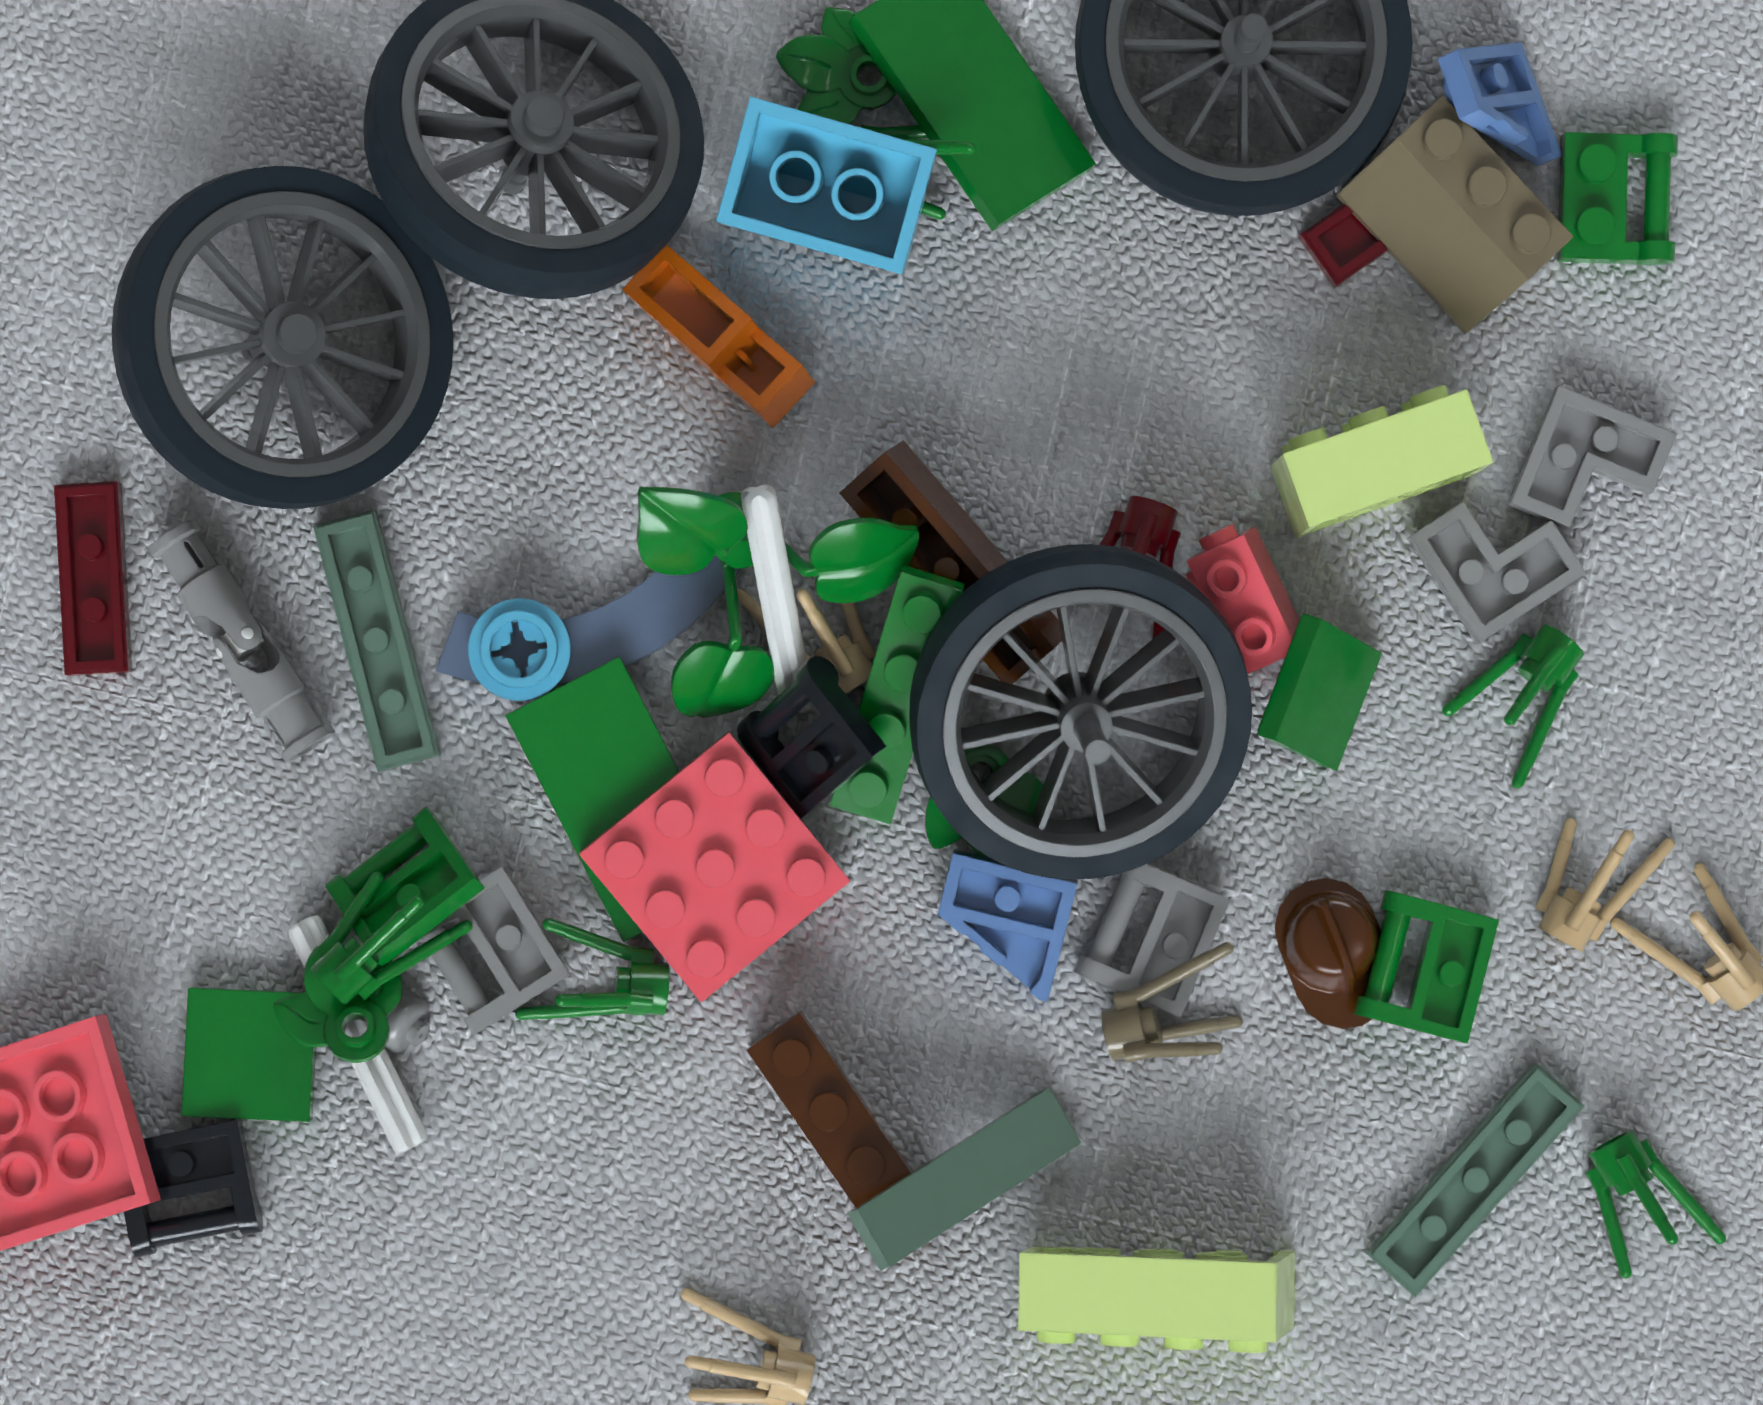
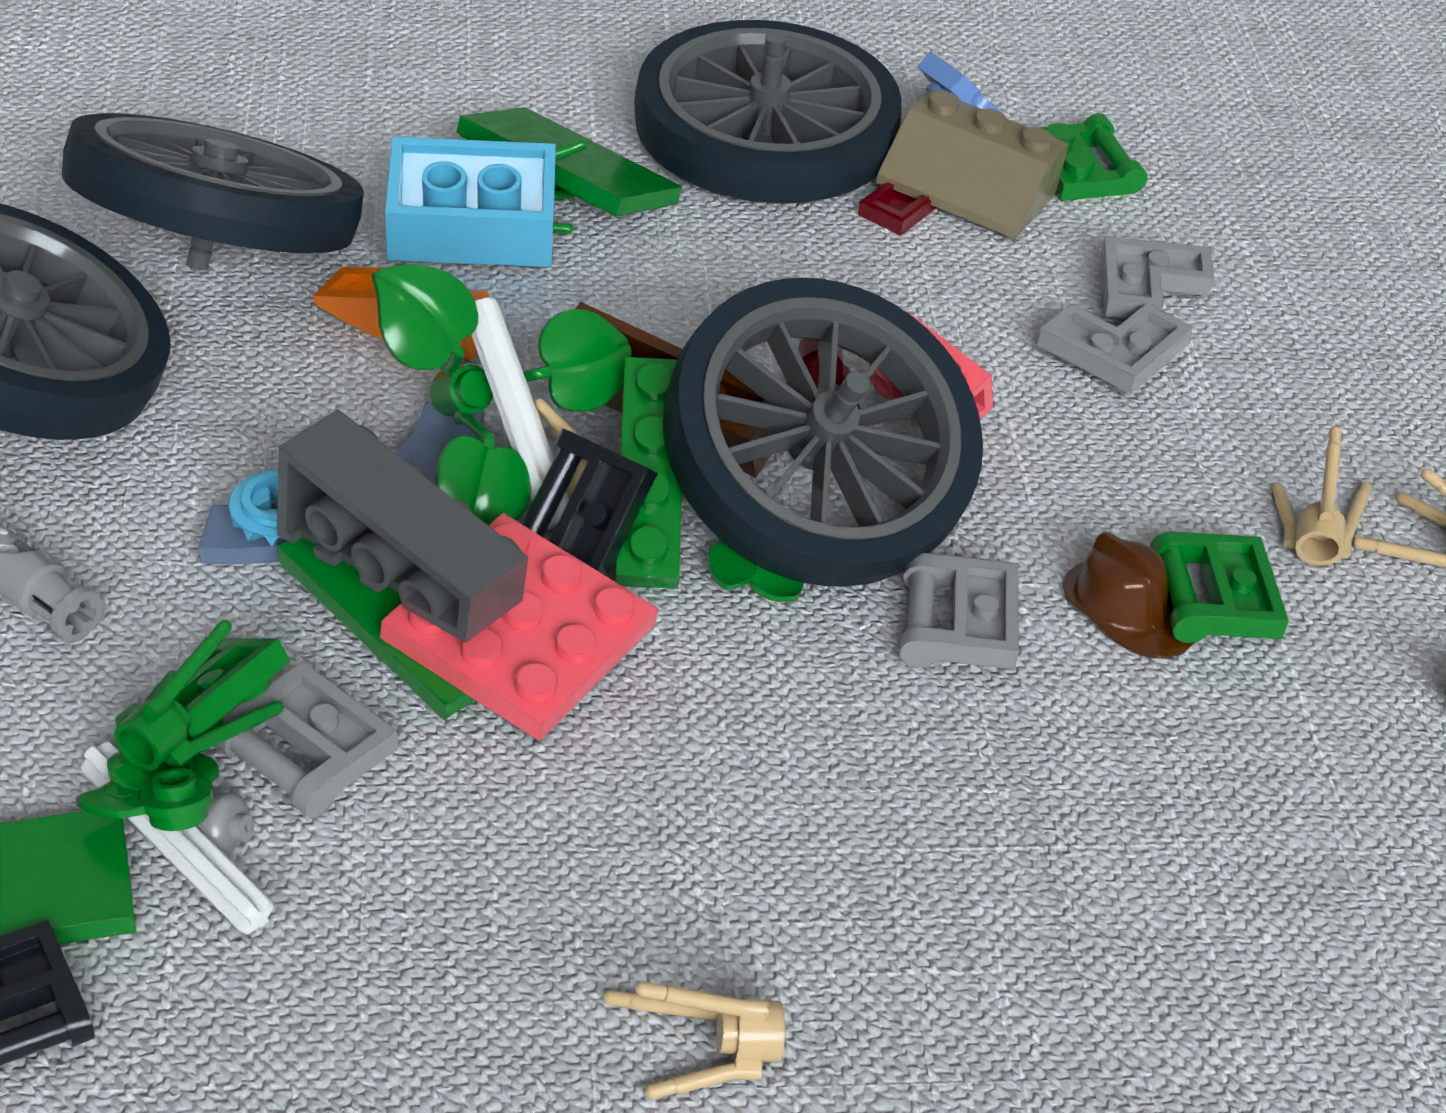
camera: 20 degrees left, 45 degrees down
(377, 640) = (136, 549): sand green tile -> none
(607, 796) = (395, 527): none -> dark grey wedge
(636, 989) = (469, 727): green plant -> none
(828, 1109) = (736, 802): reddish brown brick -> none
(963, 1179) = (867, 783): sand green tile -> none
(1010, 916) = (820, 619): medium blue wing -> none
(1136, 1031) = (978, 666): dark tan plant -> none
(1156, 1296) = (1118, 854): yellowish green wedge -> none
(1319, 692) = (1021, 412): green tile -> none
(1380, 459) = (997, 273): yellowish green brick -> none
(1474, 1179) = (1355, 738): sand green tile -> none
(1546, 662) = (1193, 389): green plant -> none

